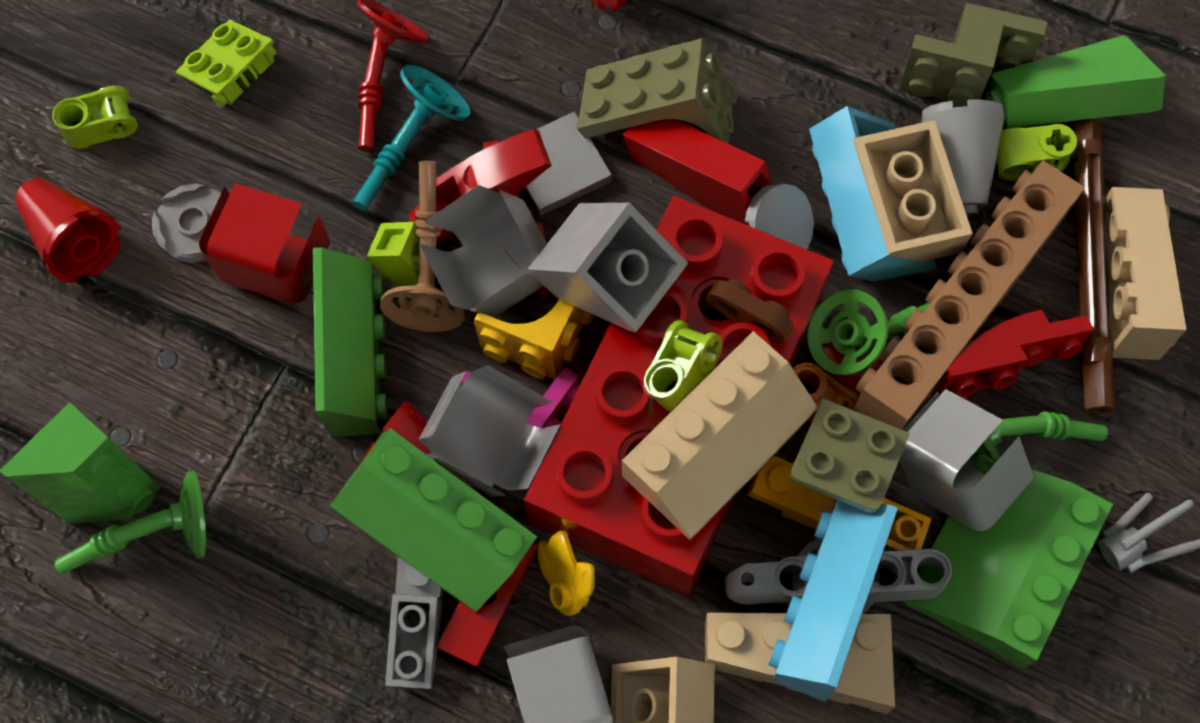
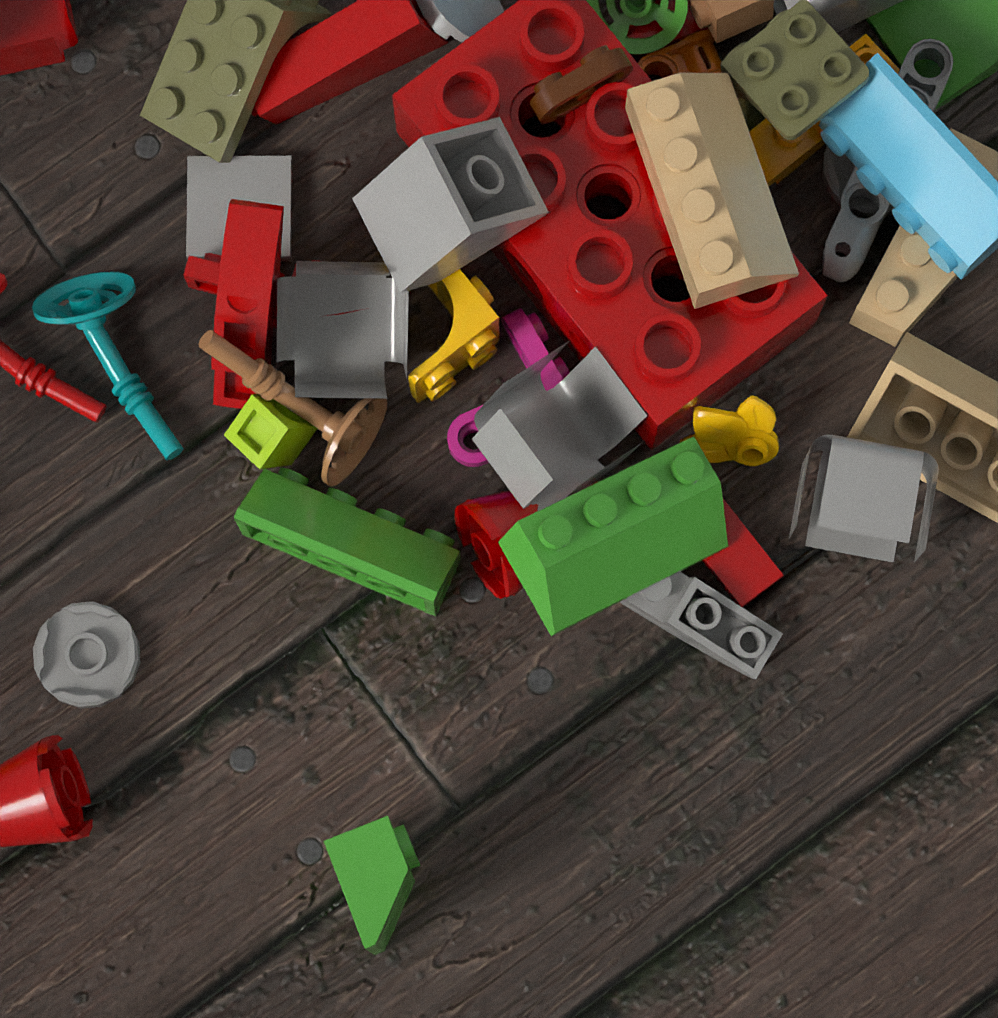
camera: 65 degrees left, 10 degrees up
(184, 516) = (467, 795): bright green dish -> none
(252, 245) = (184, 576): red piece -> none
(681, 362) = (605, 181): lime piece -> none

